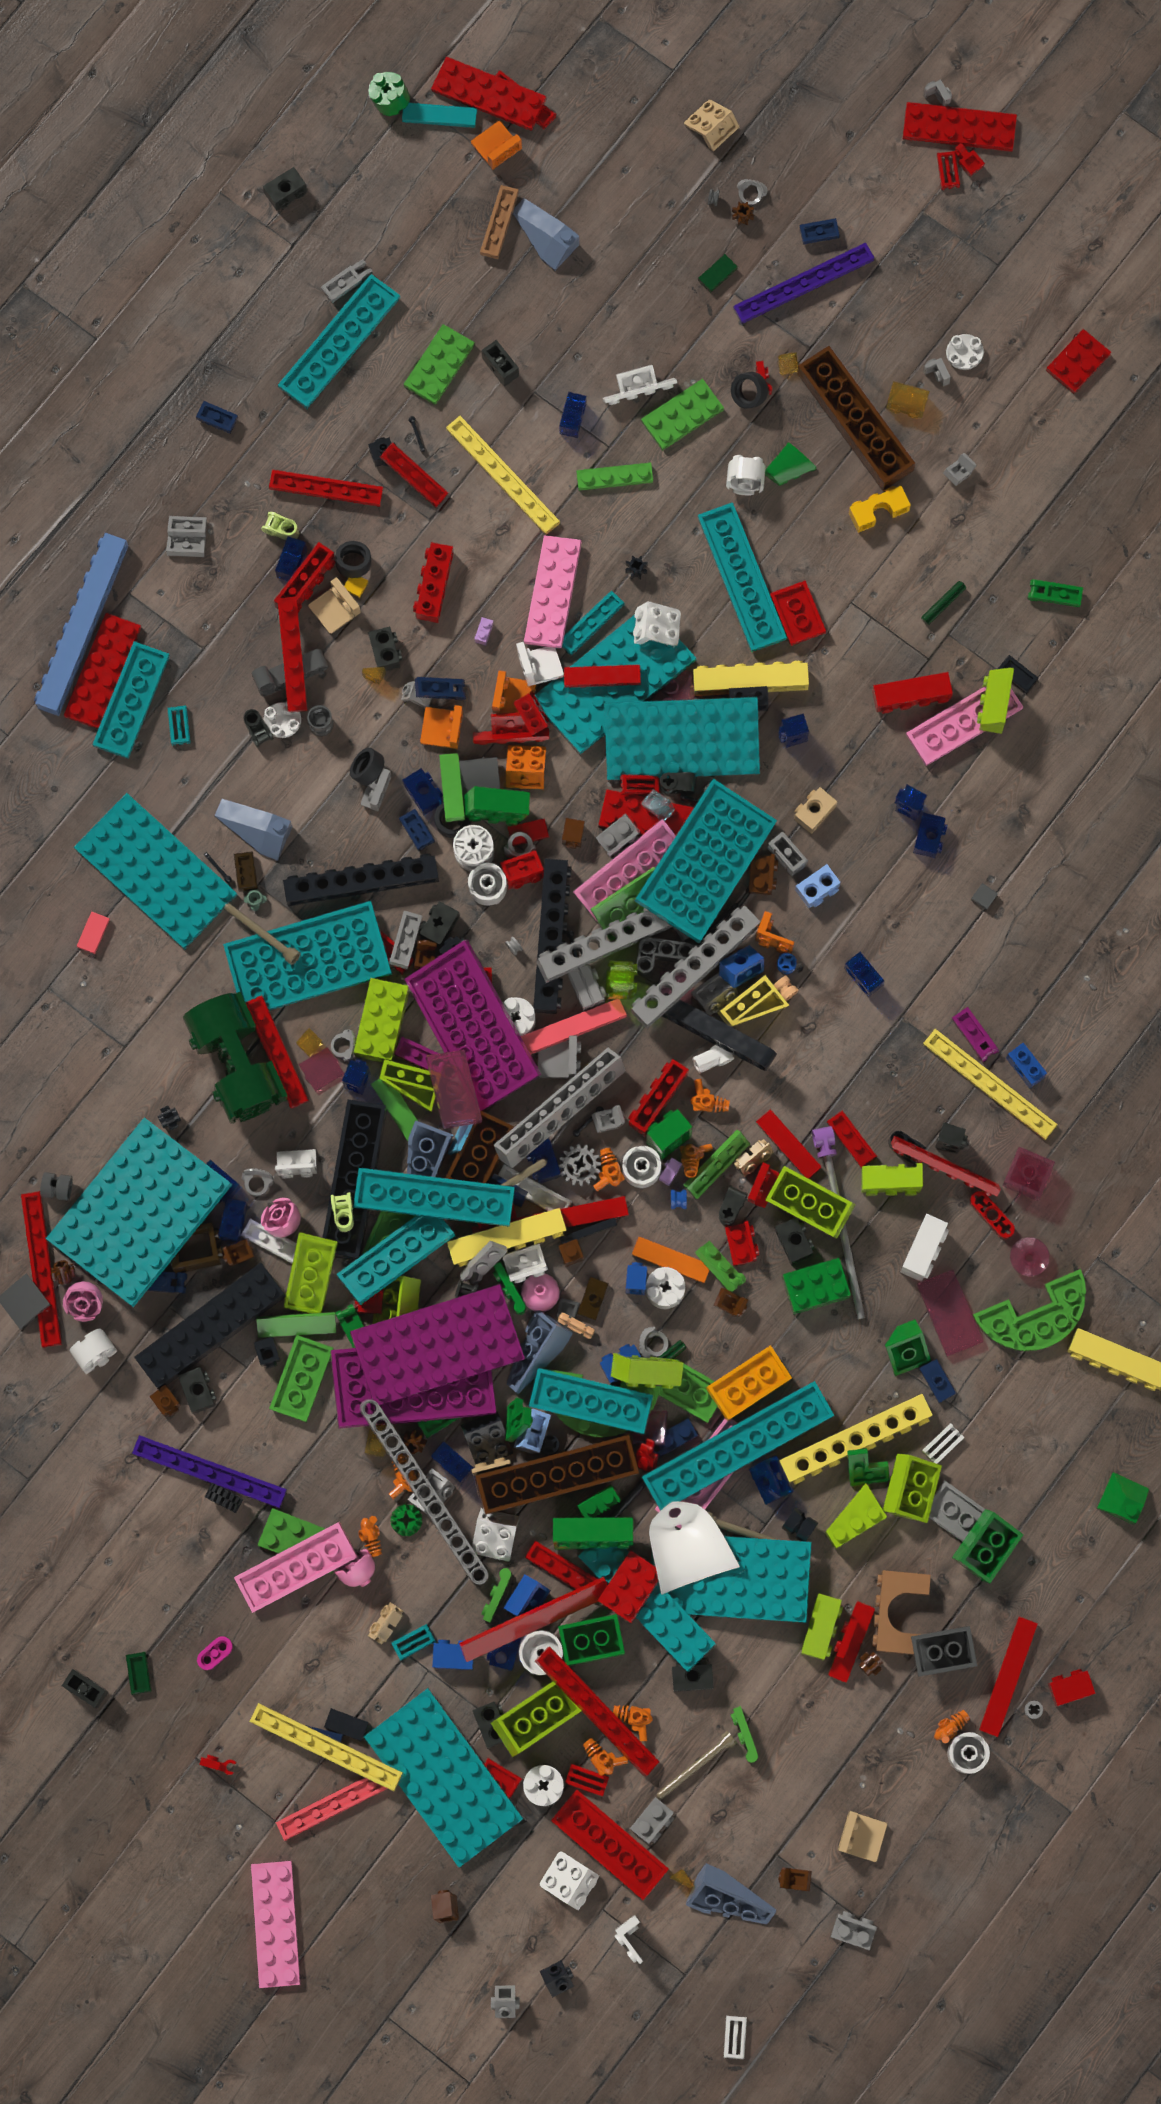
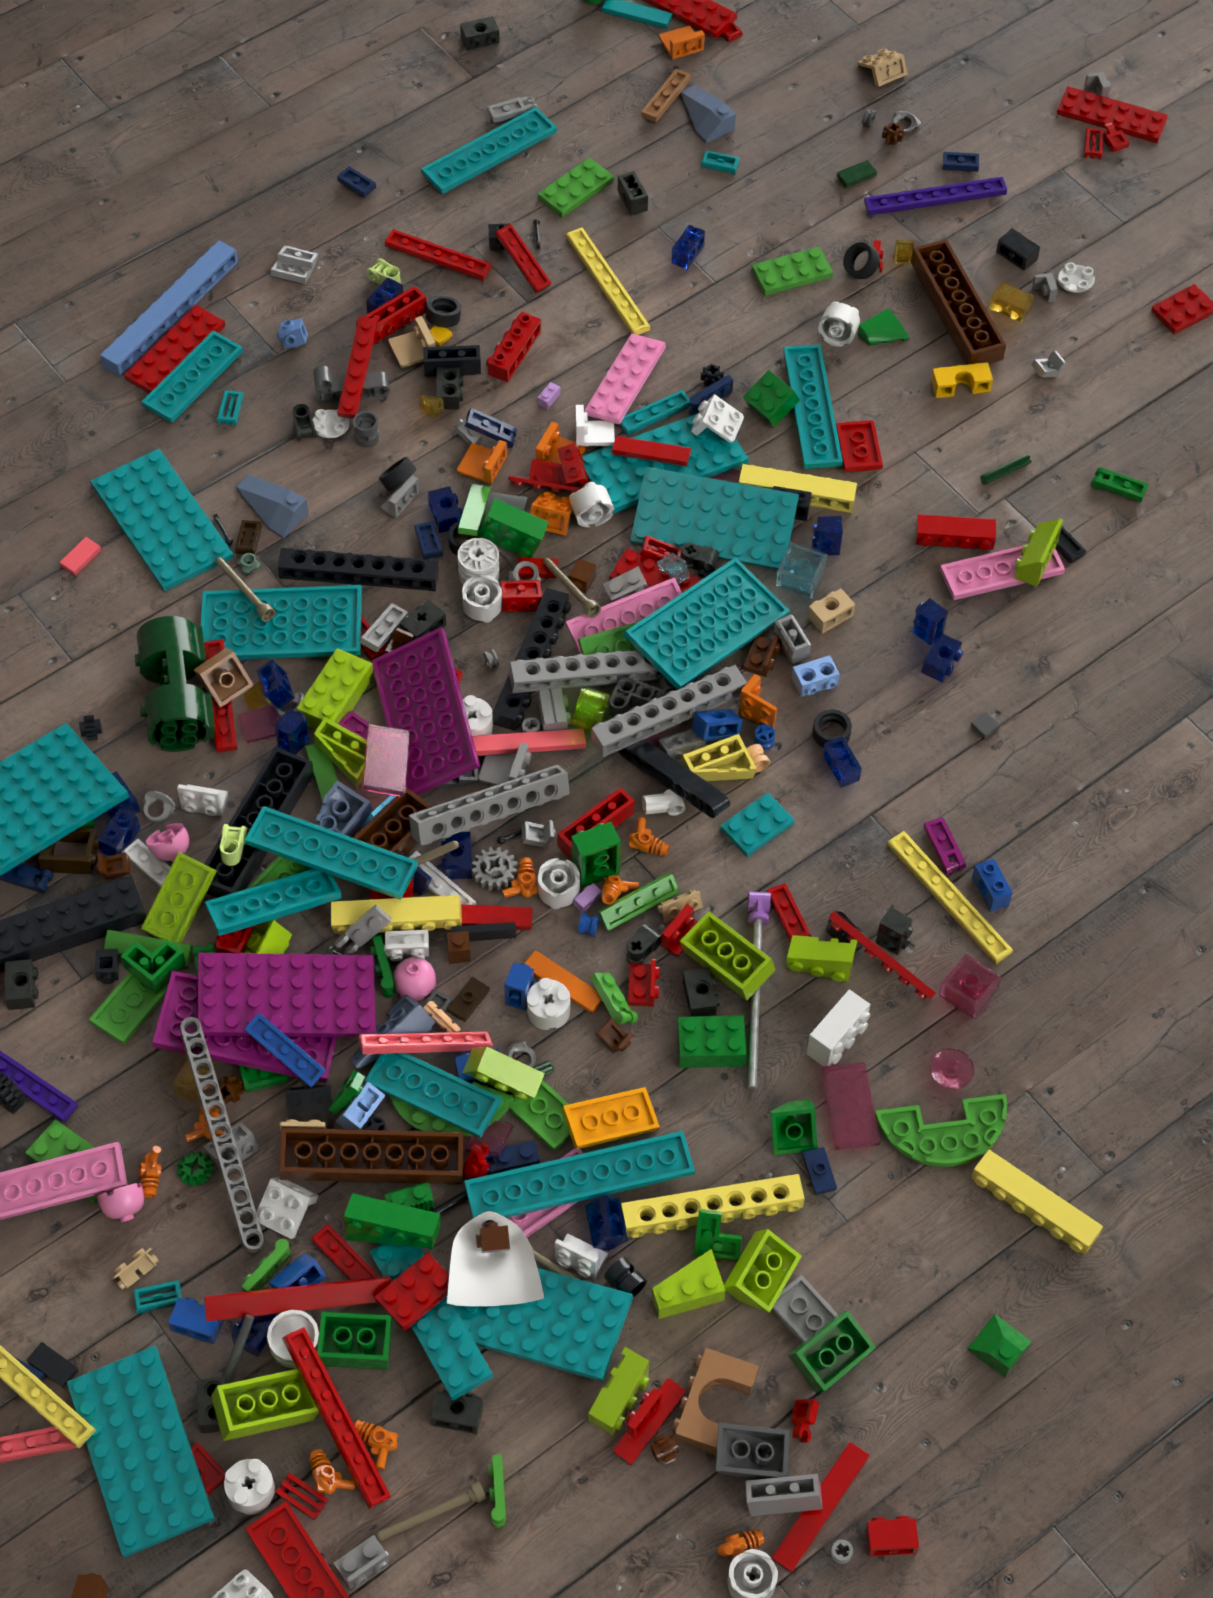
camera: 10 degrees right, 20 degrees down
(213, 625) = (292, 333): none -> medium blue brick
(276, 1038) = (223, 677): none -> medium nougat slope
(312, 1351) = (153, 968): none -> green brick
(325, 1030) = (275, 684): none -> clear blue brick
(379, 617) = (462, 357): none -> black brick
(452, 1462) = (263, 1119): clear blue brick -> none
(454, 1401) = (285, 1050): none -> blue plate
(497, 1674) = (238, 1347): none -> dark grey bar
(562, 754) = (591, 505): none -> white brick
(566, 1004) = (531, 721): none -> light grey bush
(570, 1356) = (423, 1042): none -> coral tile
(575, 296) = (709, 162): none -> teal tile
(594, 874) = (590, 607): none -> dark tan piece
(614, 476) = (713, 304): bright green plate -> none
(636, 382) = (757, 235): white bracket -> none
(640, 591) = (720, 388): none -> dark blue plate
(682, 1524) = (493, 1238): none -> reddish brown brick
(701, 583) = (771, 398): none -> green brick
(756, 1512) = (579, 1256): none -> white bracket
(778, 774) = (801, 570): none -> clear light blue brick
(788, 1144) = (718, 899): red tile -> none
(802, 1055) = (757, 824): none -> teal plate
(844, 924) = (831, 716): none -> black tyre
(900, 331) = (1018, 249): none -> black brick
(954, 1432) = (825, 1228): white tile -> none
(977, 1604) = (804, 1415): none -> red plate
(977, 1679) = (784, 1495): none -> light grey brick
(979, 1207) = (921, 1030): red beam -> none

